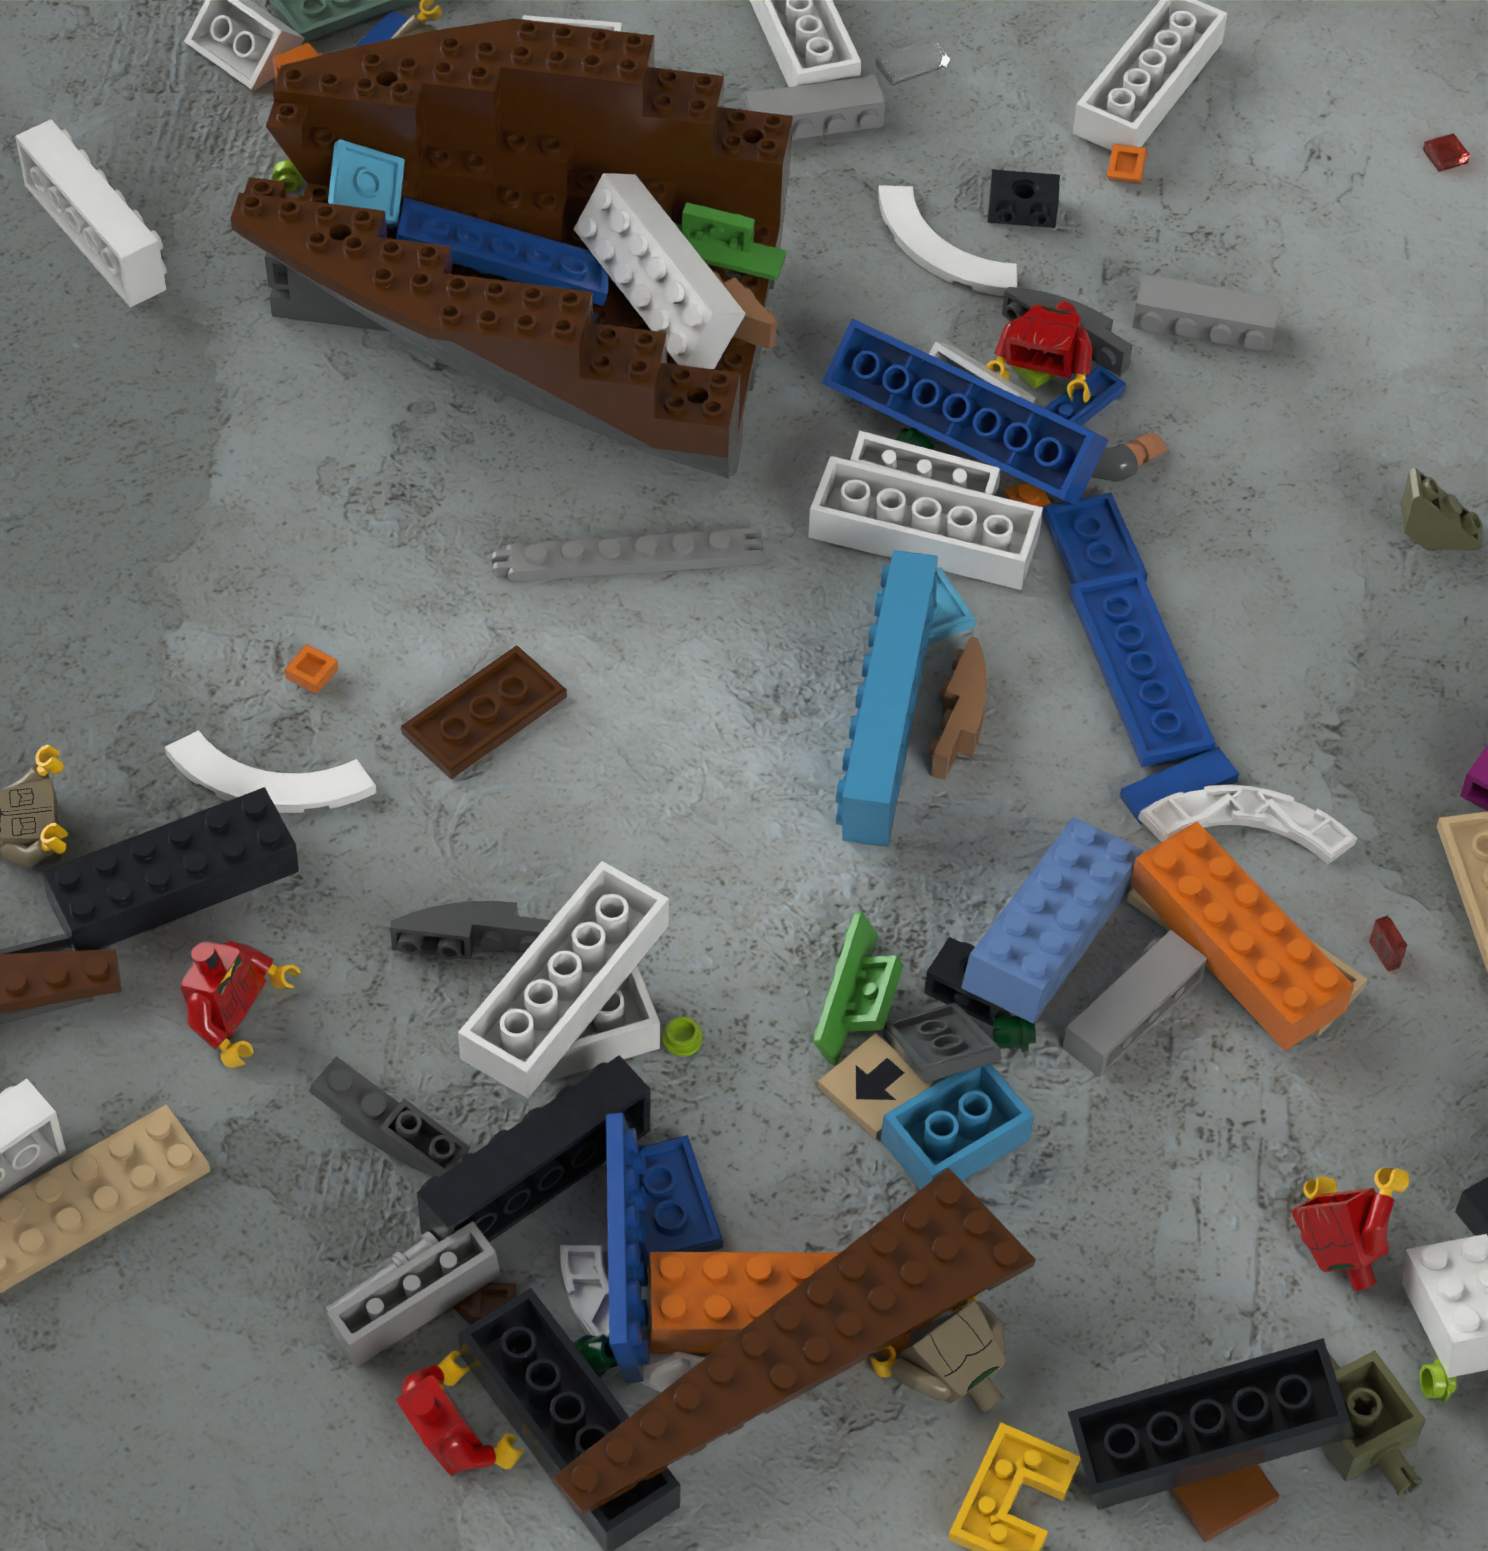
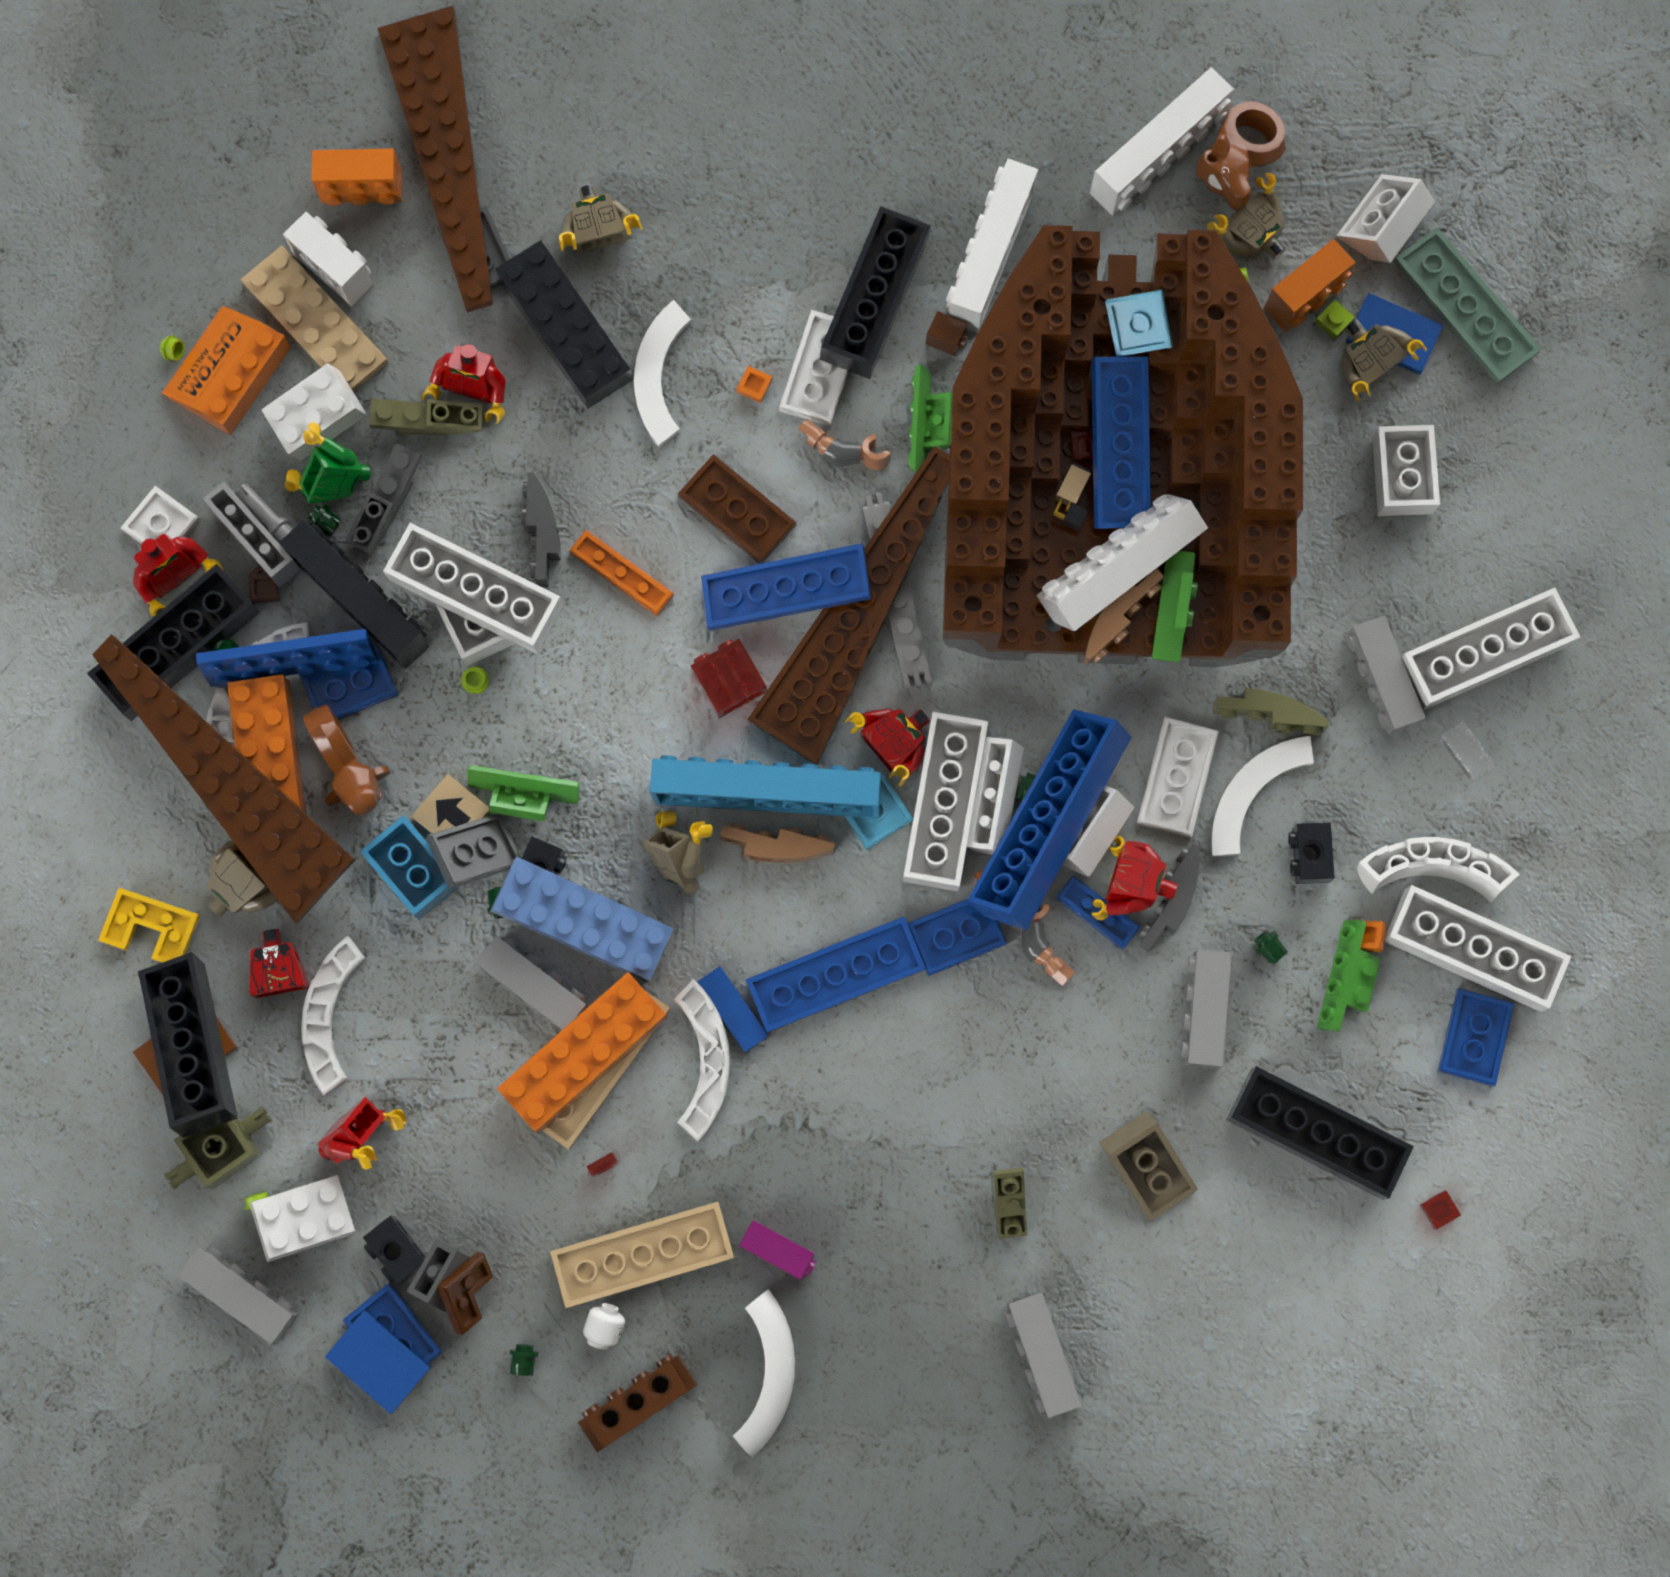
camera: 85 degrees right, 25 degrees up
(76, 1399) = (172, 348): none -> lime plate
(125, 141) = (1230, 160): none -> dark orange animal
(128, 1323) = (227, 369): none -> orange slope
(186, 388) = (991, 244): none -> white brick
(218, 515) = (875, 292): none -> black brick
(220, 149) = (1255, 225): none -> dark tan torso
(235, 1193) = (317, 399): none -> white brick
(272, 1056) = (427, 418): none -> olive slope
(289, 458) = (947, 334): none -> reddish brown brick
(302, 600) = (813, 384): none -> white tile
(341, 1178) = (329, 472): none -> green torso
(362, 1443) = (158, 516): none -> white tile
(401, 1207) = (324, 519): none -> dark green hose
(408, 484) = (930, 418): none -> bright green bracket
(431, 582) = (844, 453): none -> nougat piece
(552, 850) = (621, 573): none -> orange tile
(612, 652) = (786, 587): none -> blue plate
(725, 737) = (728, 677): none -> clear red brick
(731, 633) = (825, 666): none -> reddish brown wing
(773, 1198) = (353, 781): none -> dark orange animal
(837, 569) = (893, 738): none -> red torso
(845, 210) = (1282, 711): none -> olive slope
(913, 310) = (1177, 777): none -> white tile
(971, 807) = (676, 853): none -> dark tan torso
(1042, 84) = (1438, 858): none -> white brick
(1090, 1324) = (275, 967): none -> red torso
(1133, 250) = (1270, 946): none -> dark green hose
(1159, 1281) = (318, 1014): none -> white tile
(1174, 190) = (1350, 977): none -> bright green bracket
(1248, 98) = (1476, 1037): none -> blue tile
(1359, 230) = (1320, 1133): none -> black brick
(1391, 389) = (1148, 1165): none -> dark tan slope

